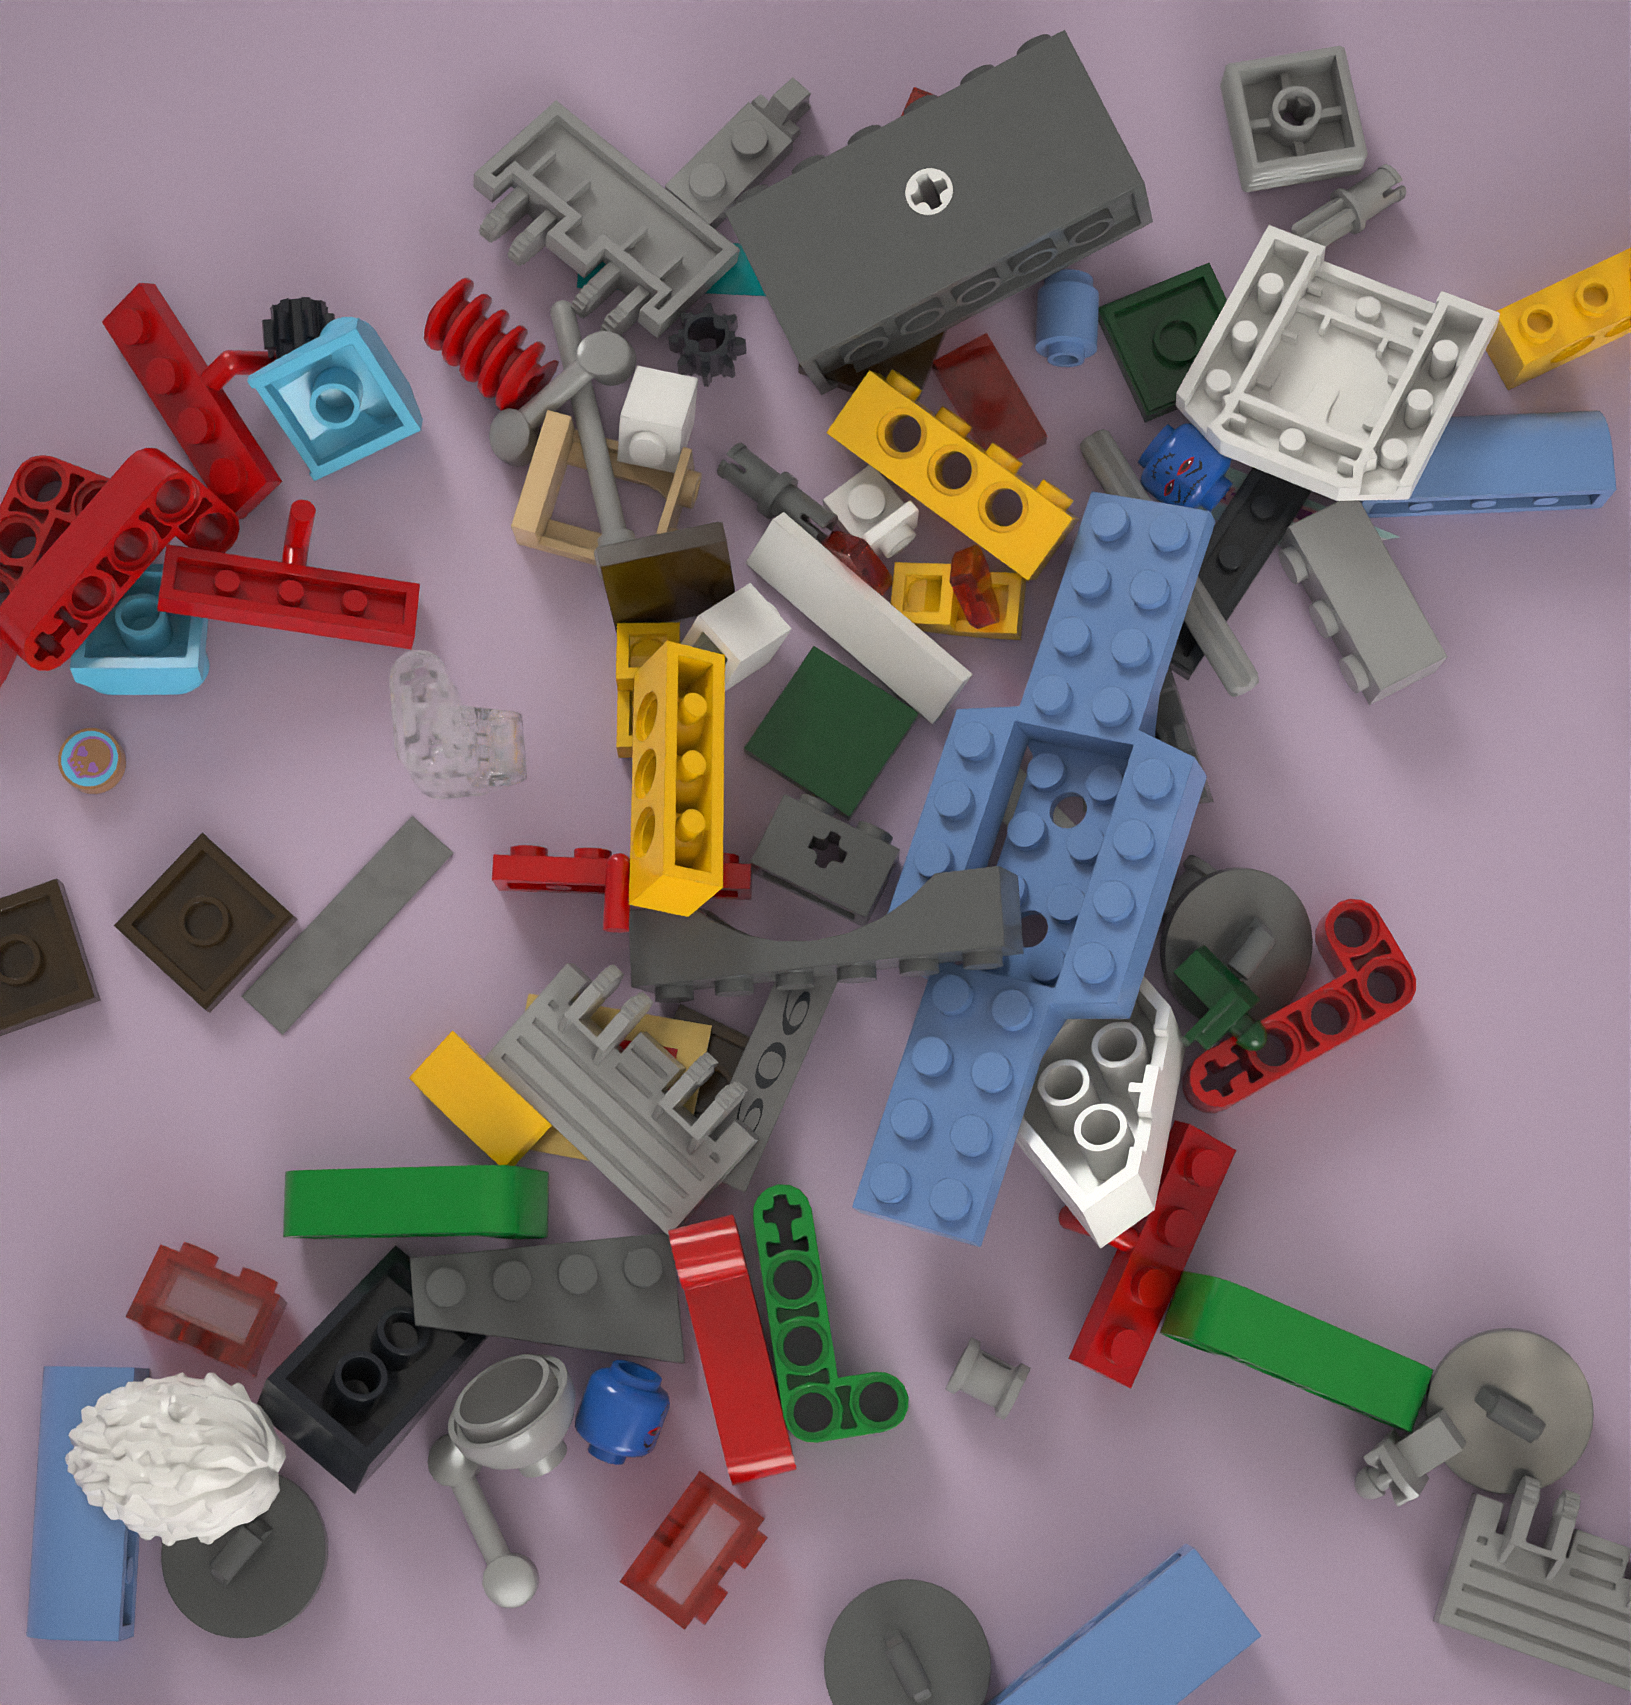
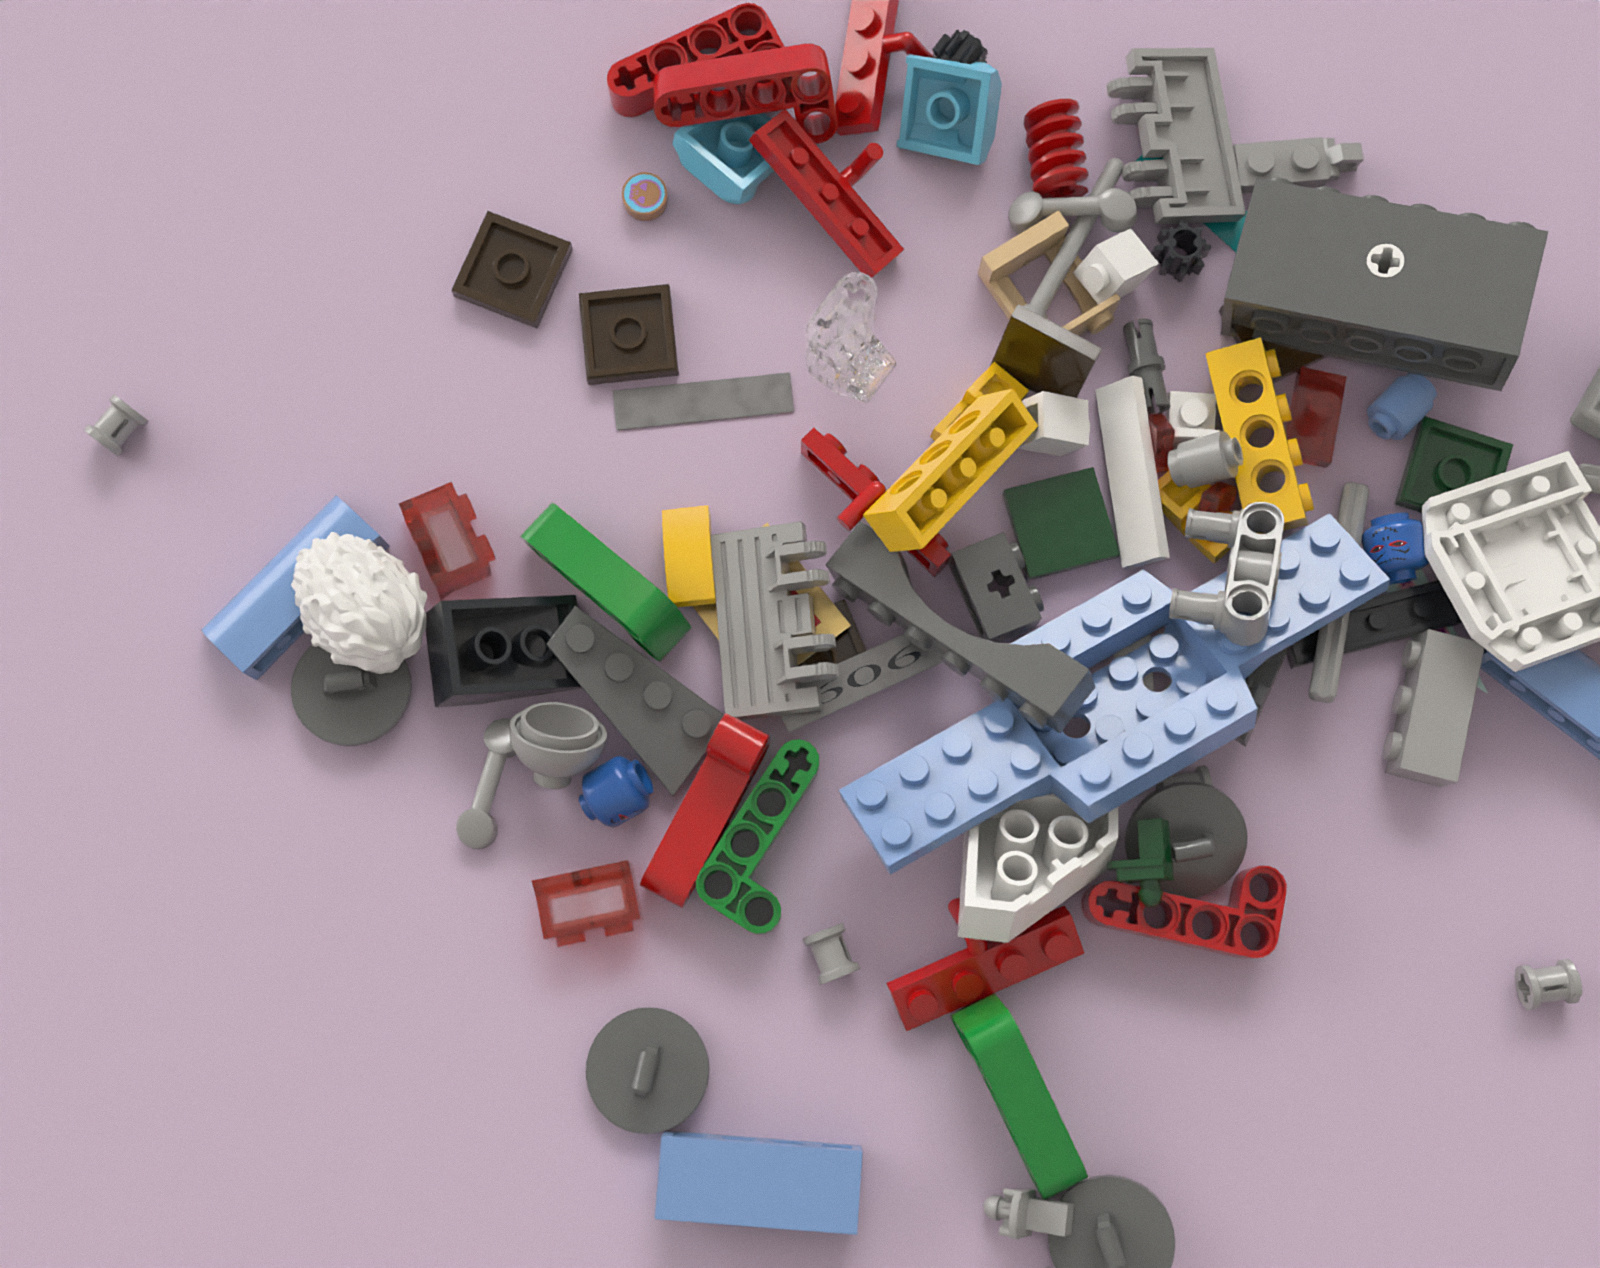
camera: 40 degrees right, 0 degrees up
(922, 544) = (1205, 460): none -> light grey brick
(1069, 624) = (1250, 572): none -> light grey piece

